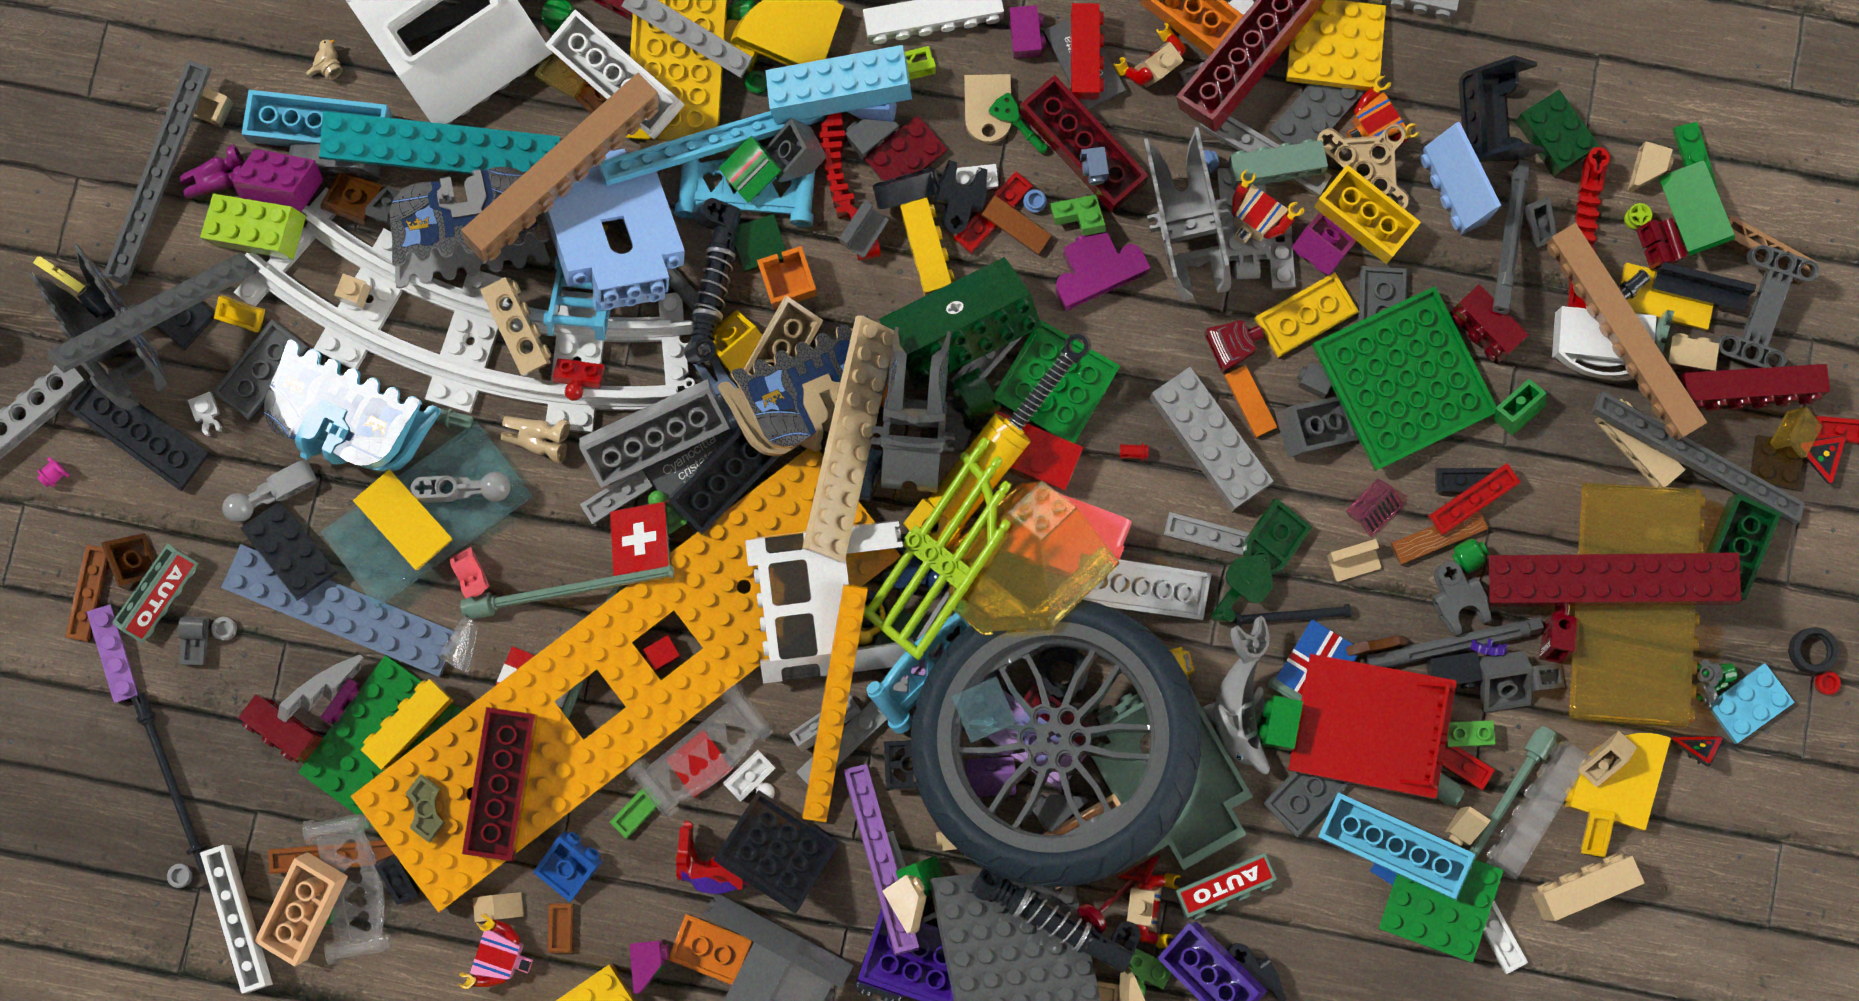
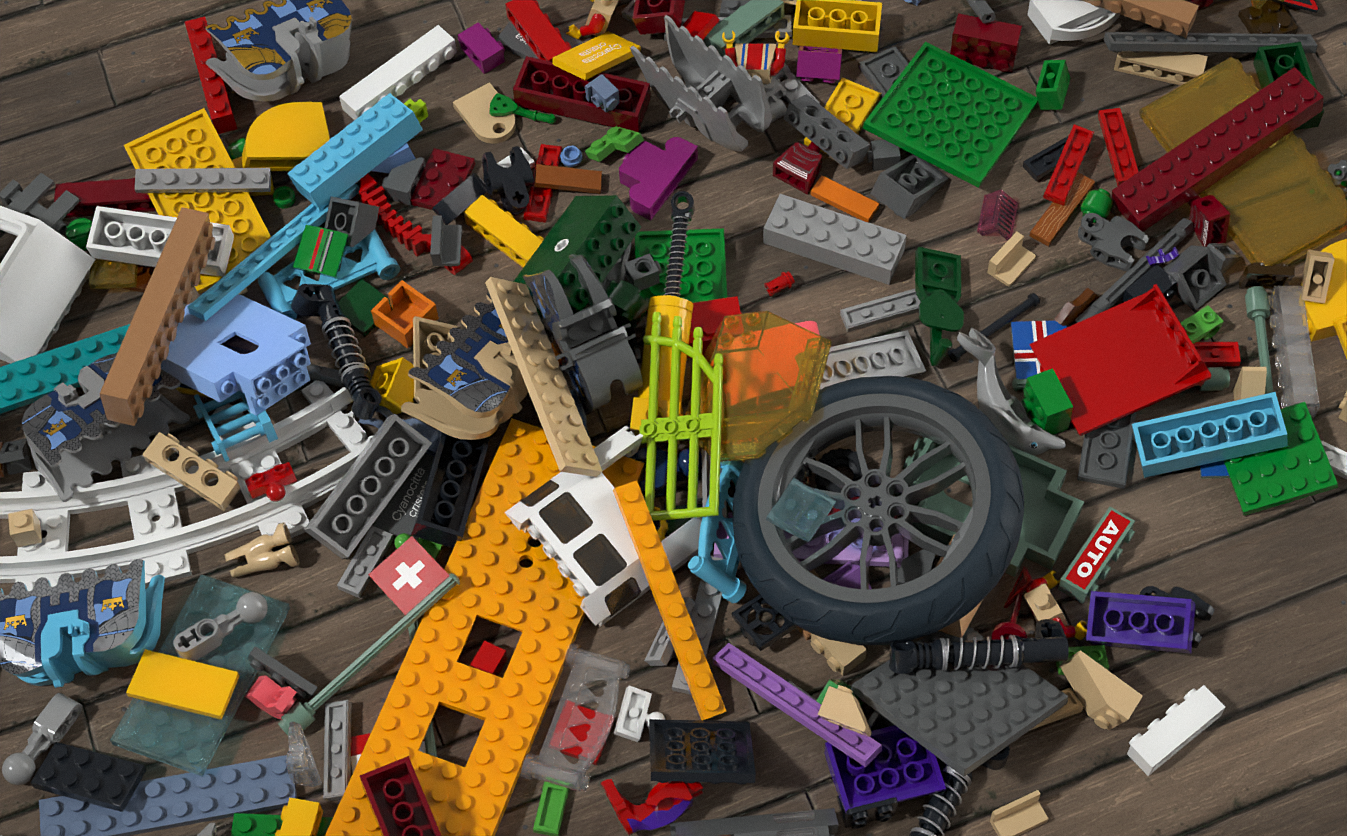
camera: 30 degrees left, 20 degrees down
(455, 419) = (179, 584): sand green axle -> none
(487, 560) = (281, 674): none -> dark grey plate
(496, 651) = (337, 749): none -> light grey tile
(1009, 362) = (643, 280): none -> dark grey brick
(1121, 112) = (595, 55): none -> yellow tile
(1226, 144) = (700, 23): none -> red tile
(1283, 335) = (826, 131): none -> dark grey brick
(1536, 507) = (1117, 144): none -> red plate
(1572, 731) = (1266, 276): none -> dark brown plate

